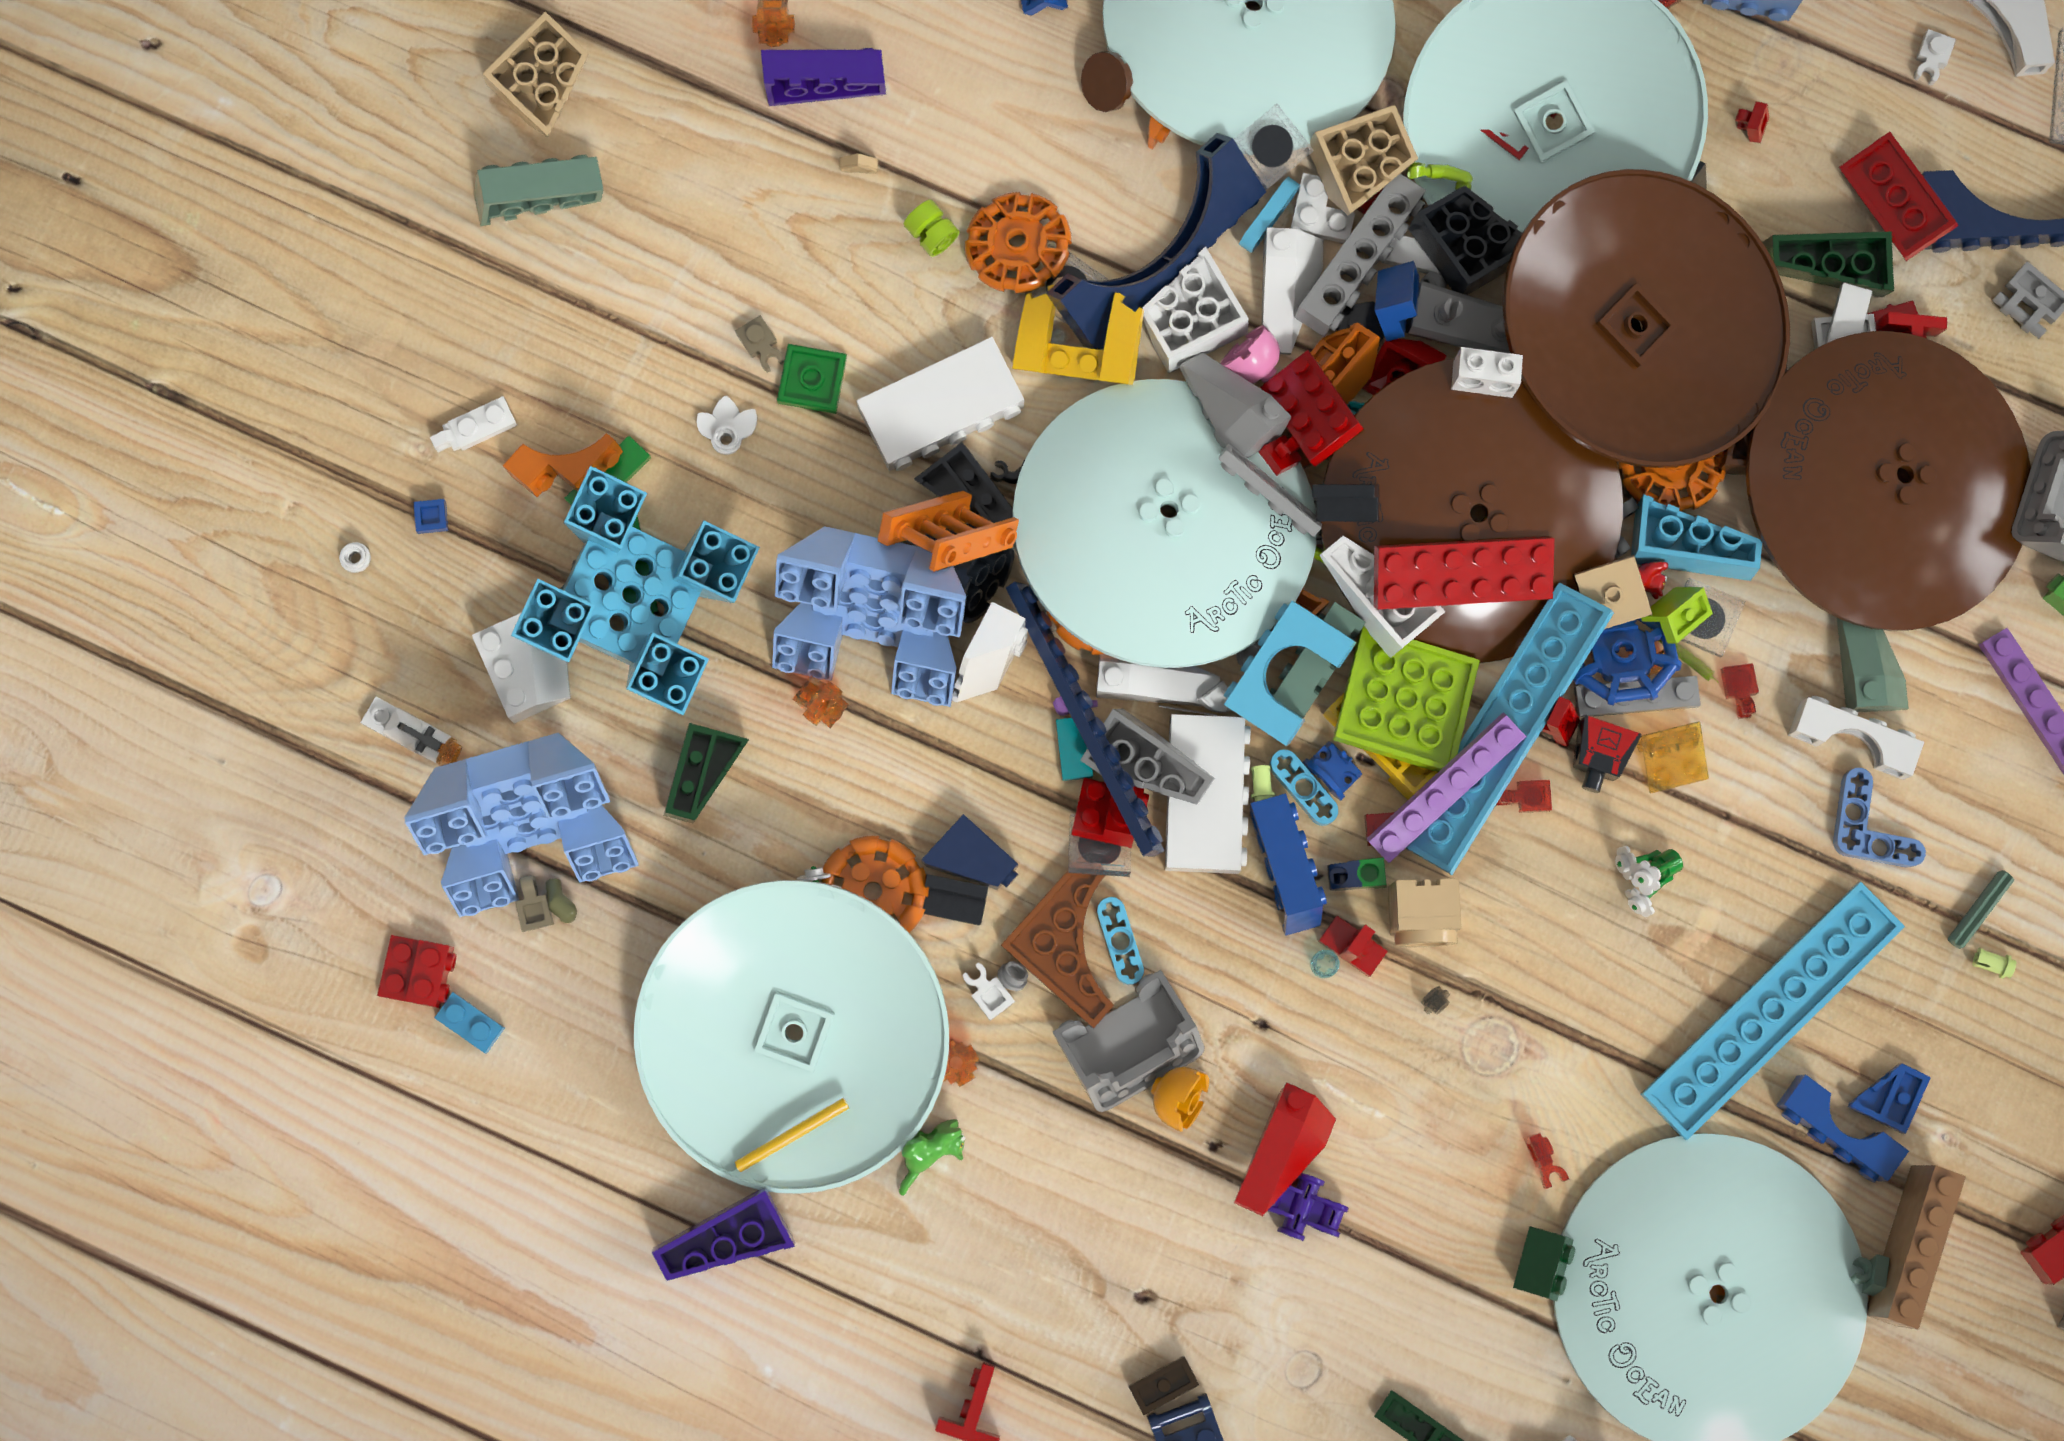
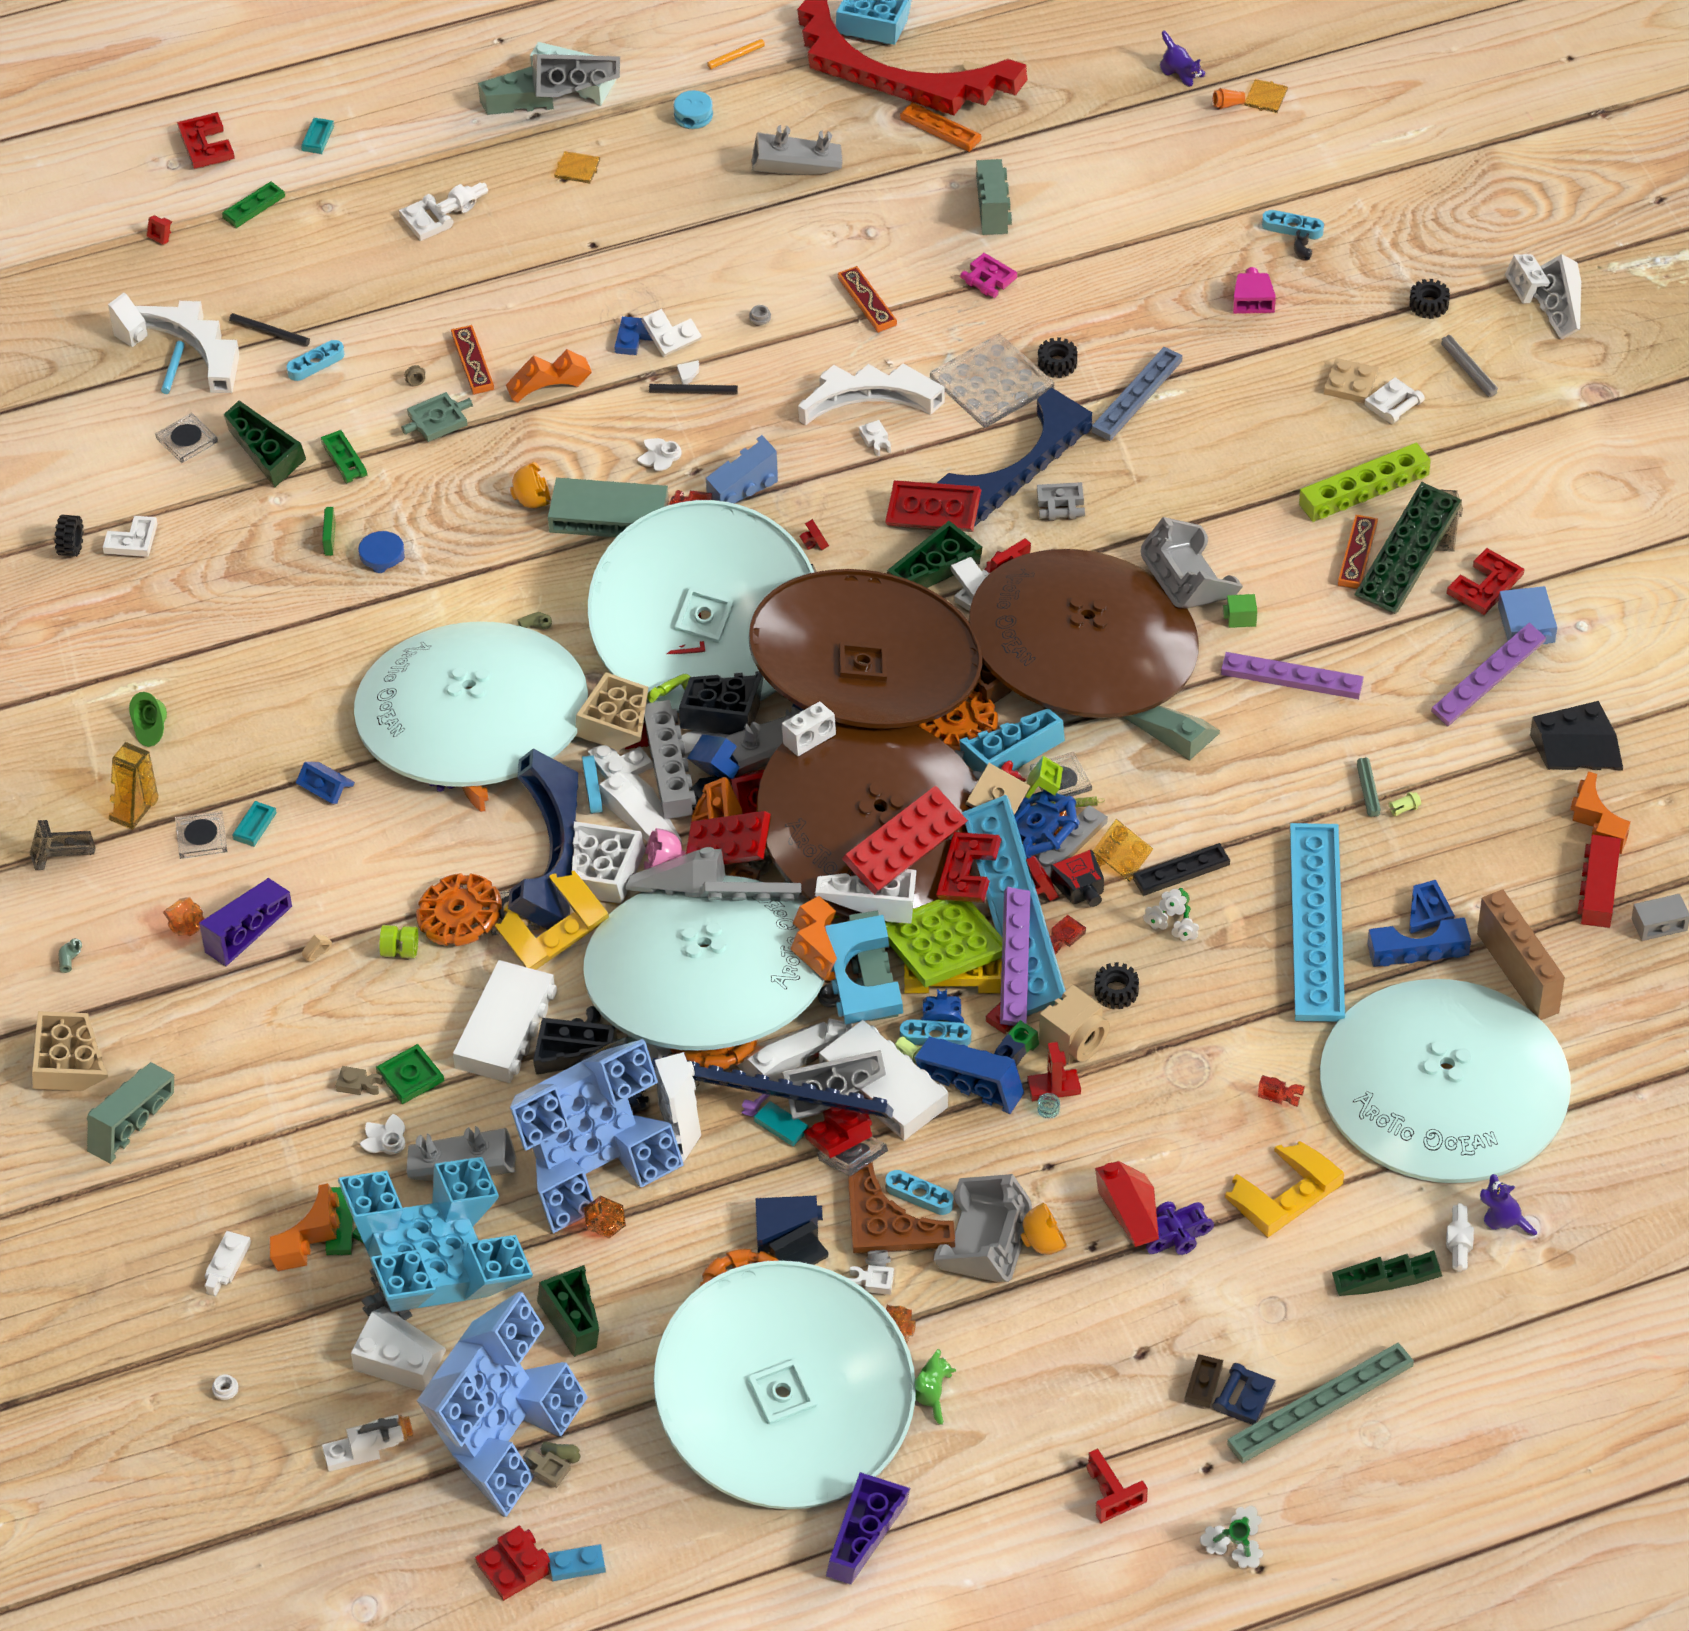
camera: 40 degrees left, 30 degrees down
(431, 516) = (251, 1326): blue plate -> none
(755, 510) = (492, 1145): none -> light grey piece
(791, 1135) = (841, 1443): yellow bar -> none
(952, 513) = (576, 1048): orange fence -> none
(1106, 81) = (422, 792): reddish brown tile -> none
(1263, 608) = (812, 941): none -> orange arch
(1272, 146) = (559, 741): clear tile -> none
(1281, 454) = (735, 873): red tile -> none
(1347, 502) = (800, 857): black panel -> none
(1436, 1000) = (1131, 1068): clear smoke plate -> none
(1482, 1285) = (1270, 1215): none -> yellow wedge
(1513, 627) = (955, 879): none -> red plate
(1534, 893) = (1113, 996): none -> black tyre
(1544, 1264) = (1339, 1136): dark green brick -> none
(1710, 828) = (1181, 869): none -> black tile
(1741, 684) = (1119, 791): clear red plate -> none
(1864, 837) = (1267, 805): medium blue beam -> none
(1874, 1275) = (1516, 992): sand green tile -> none
(1892, 750) = (1232, 752): white arch -> none

